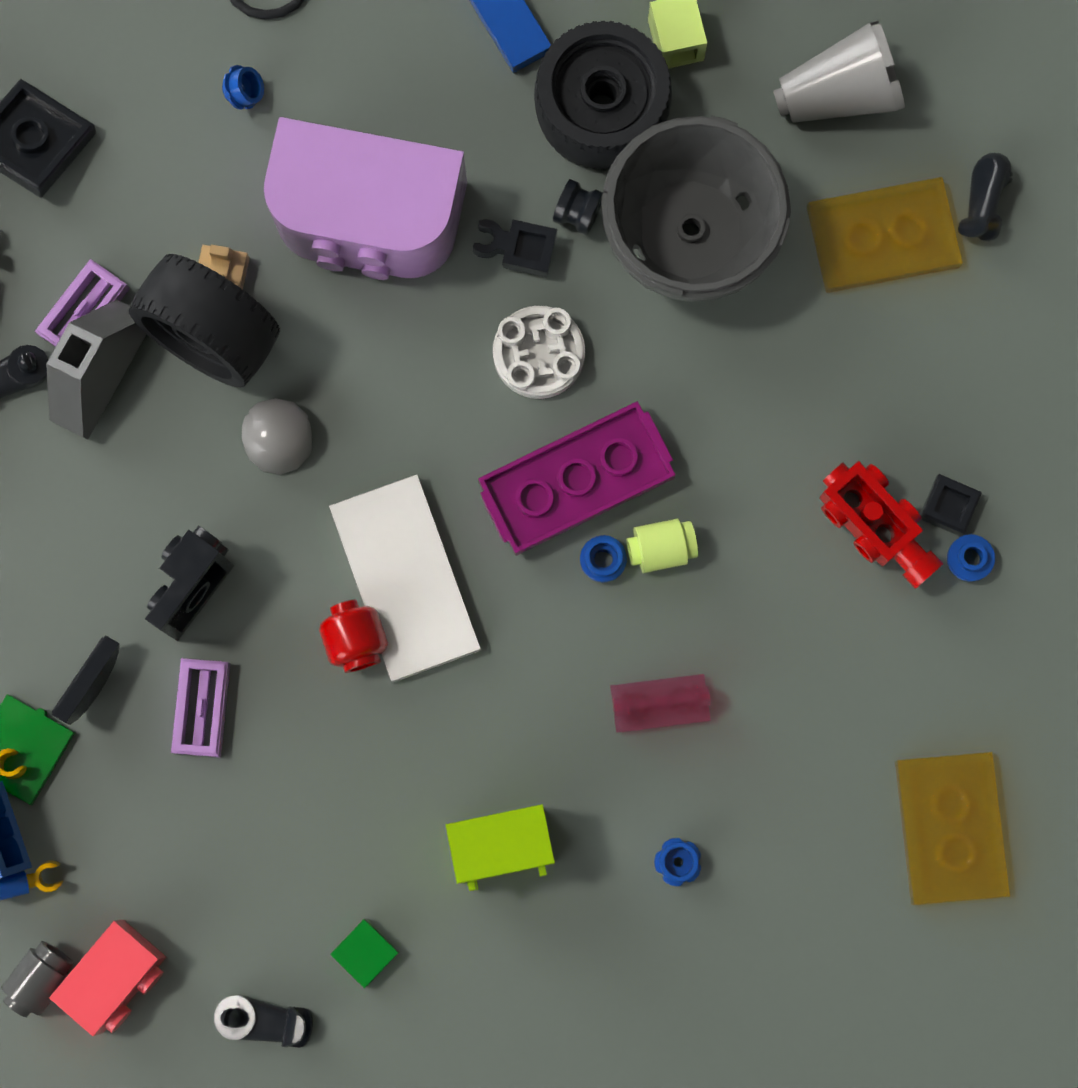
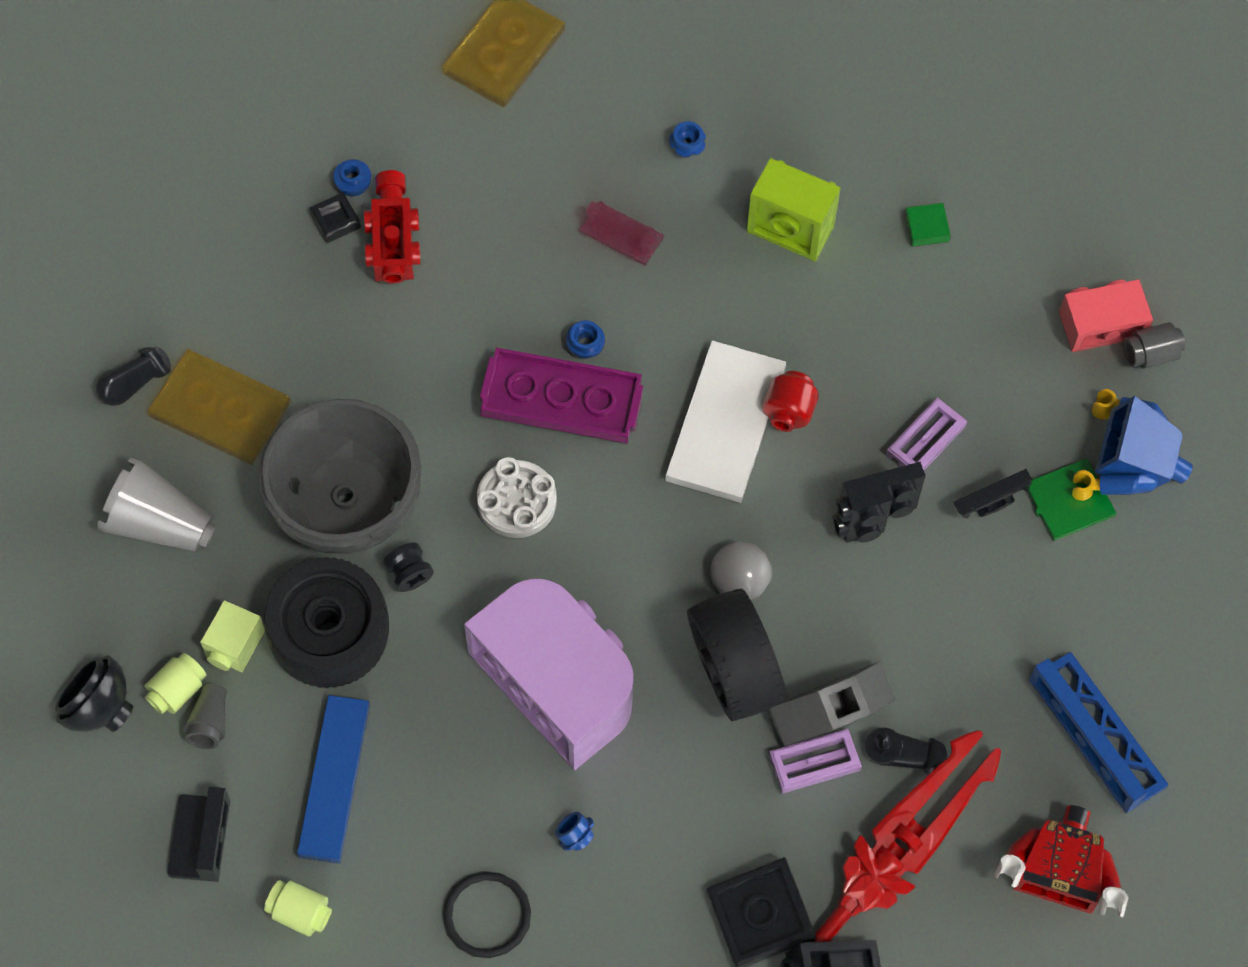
camera: 145 degrees left, 15 degrees down
(226, 262) = (694, 713): tan tile -> none
(255, 1020) = (1030, 238): black piece -> none
(525, 248) = (469, 569): black plate -> none
(662, 545) = (540, 316): yellowish green brick -> none

